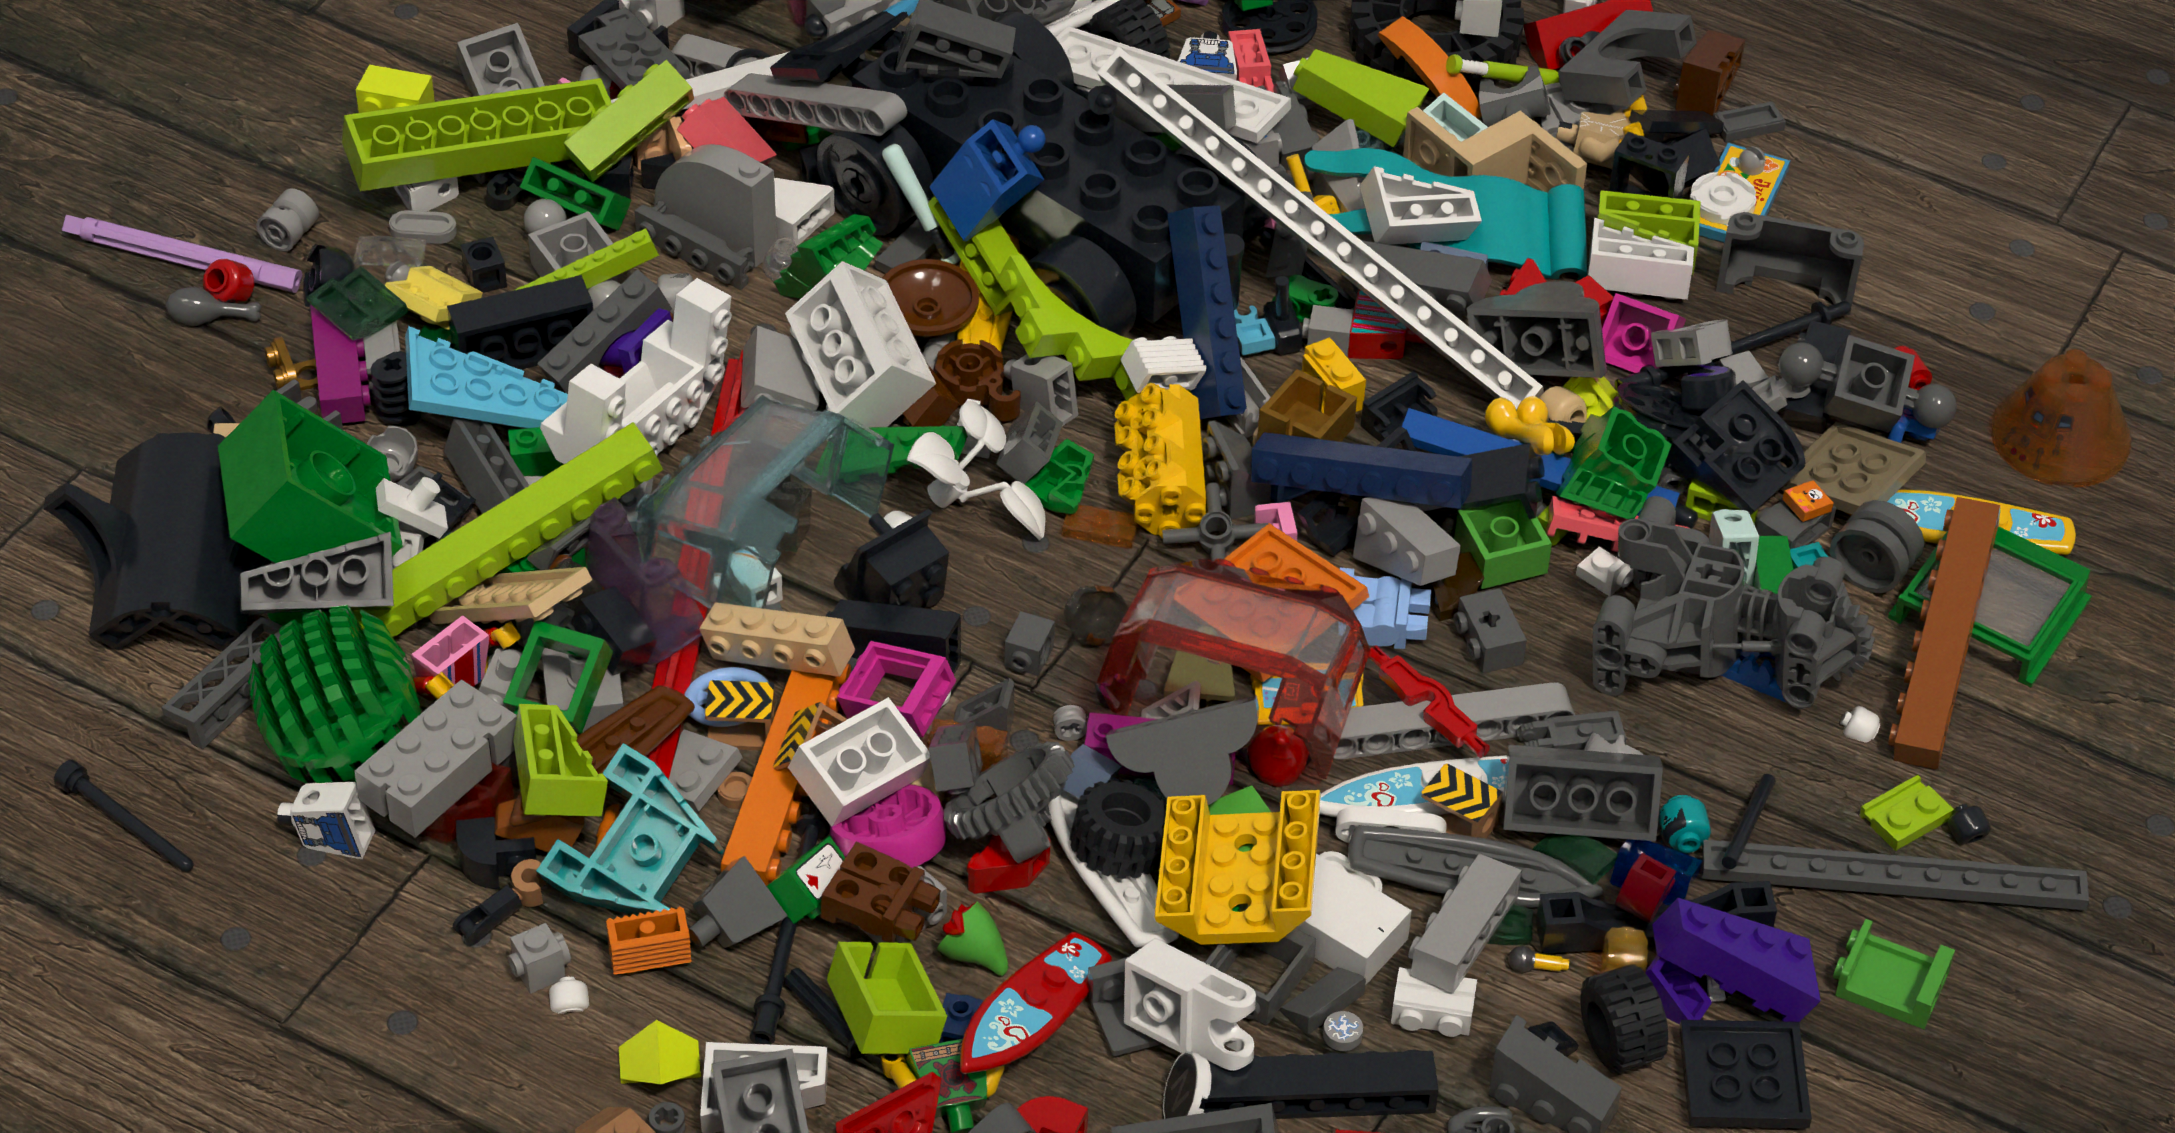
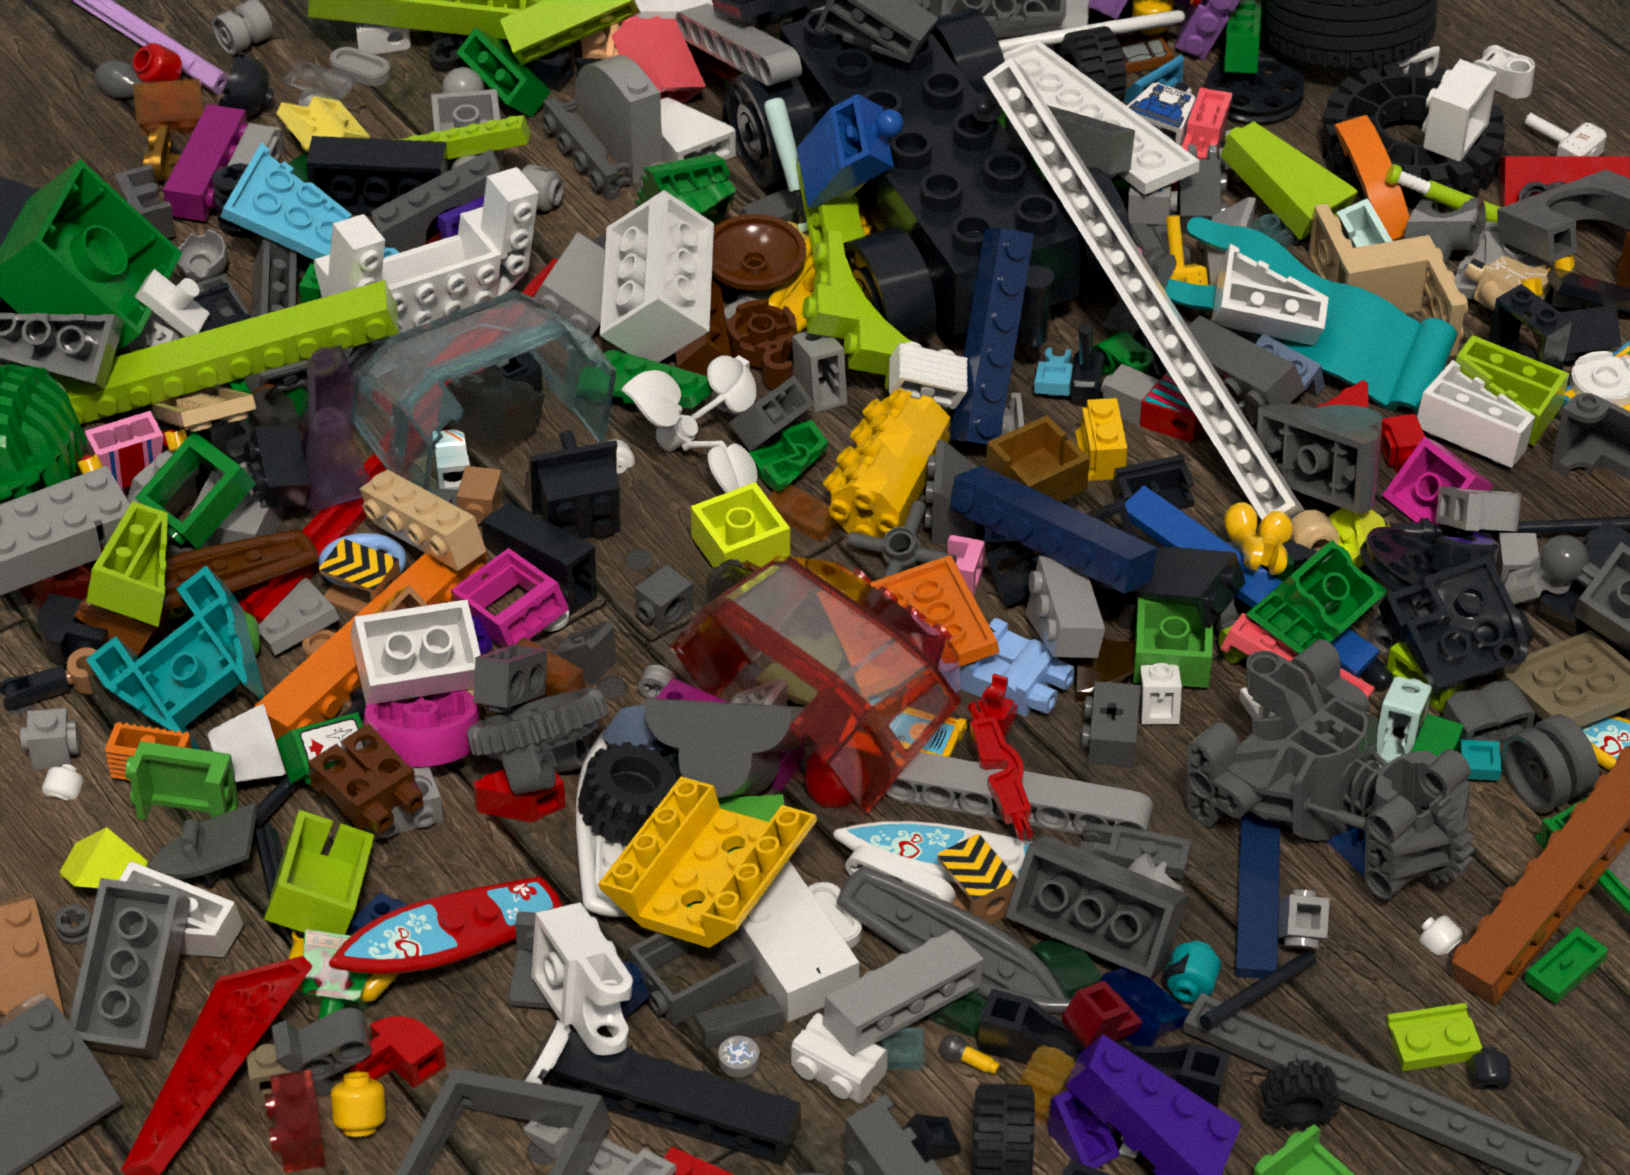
camera: 25 degrees right, 0 degrees up
(264, 314) = (168, 103): none -> clear orange brick
(358, 304) = (244, 115): clear green slope -> none
(484, 265) = (387, 113): black brick -> none
(700, 953) = (181, 779): none -> bright green panel
(757, 1004) = (208, 844): none -> dark grey shield
(800, 594) = (480, 491): none -> medium nougat brick
(974, 939) = (441, 850): bright green hat -> none
(1064, 558) = (740, 527): none -> neon yellow brick
(1186, 28) = (1167, 75): none -> dark azure slope
(1386, 642) = (998, 705): none -> red piece
(1486, 973) = (904, 1049): none -> clear light blue tile
(1519, 587) = (1160, 694): none -> white bracket
(1696, 743) = (1258, 897): none -> dark blue tile
(1752, 747) = (1303, 920): none -> light grey brick
(1807, 501) = (1503, 696): orange tile -> none
(1839, 897) = (1300, 1095): none -> black tyre
(1978, 715) = (1566, 965): none -> green plate

